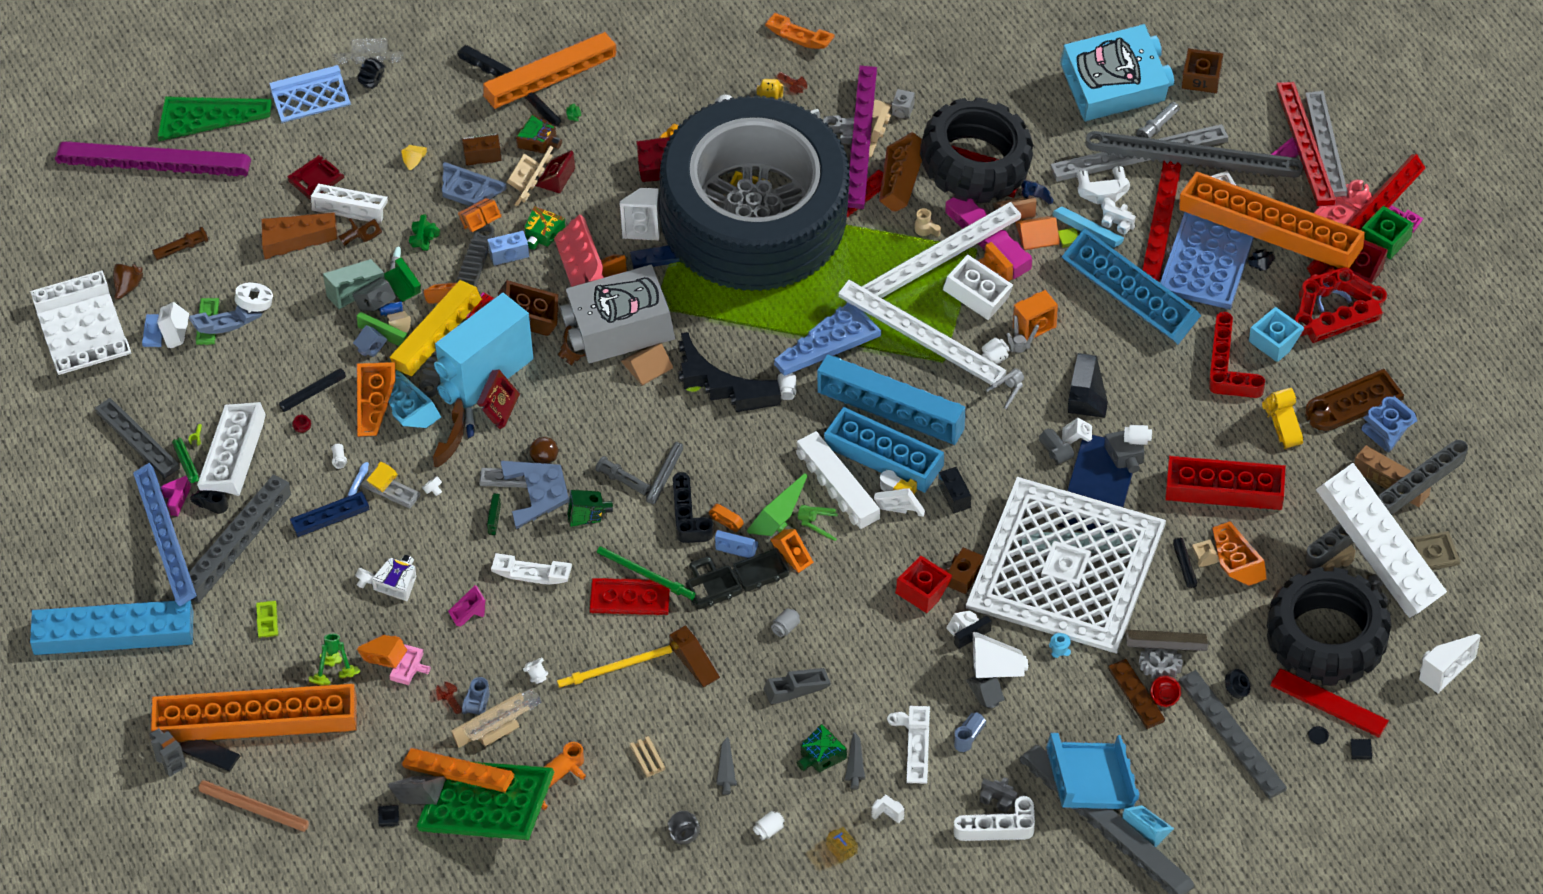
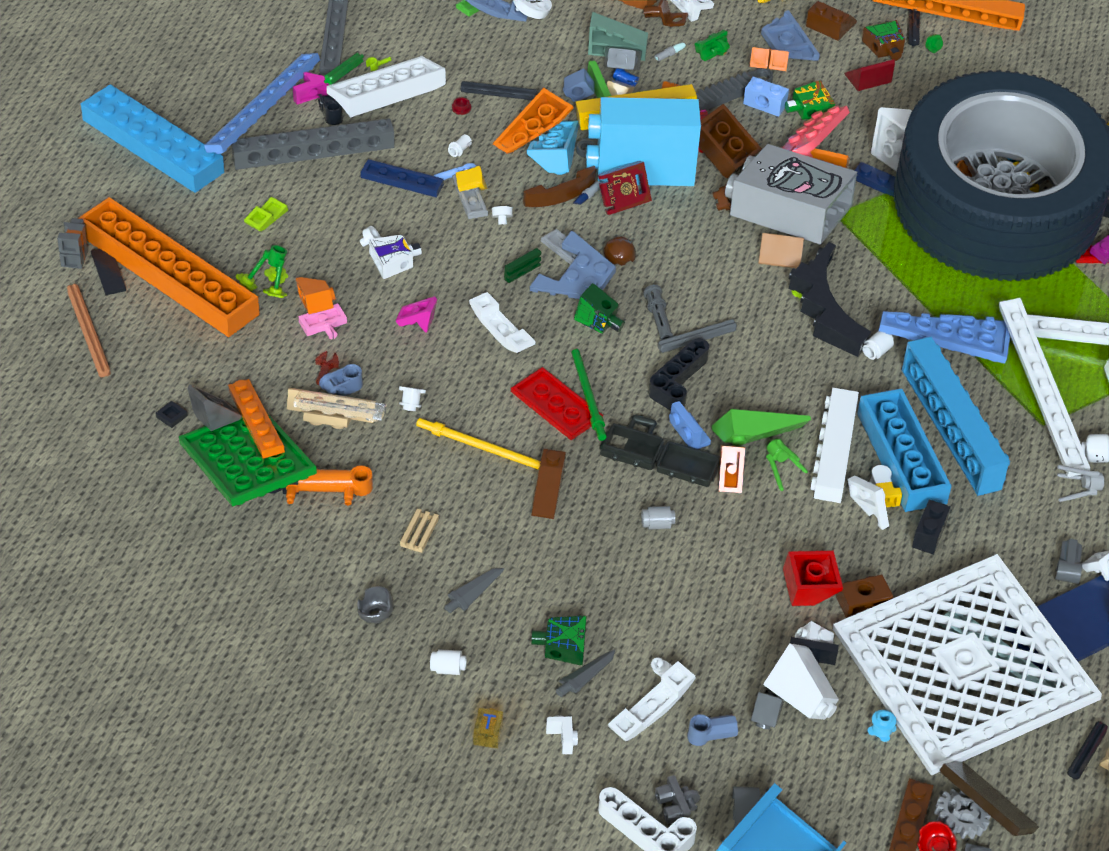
camera: 40 degrees right, 5 degrees down
(402, 281) = (656, 65): green panel -> none
(525, 173) = (845, 57): tan bracket -> none
(726, 517) = (706, 403): orange beam -> none
(796, 685) = (608, 572): dark grey slope -> none

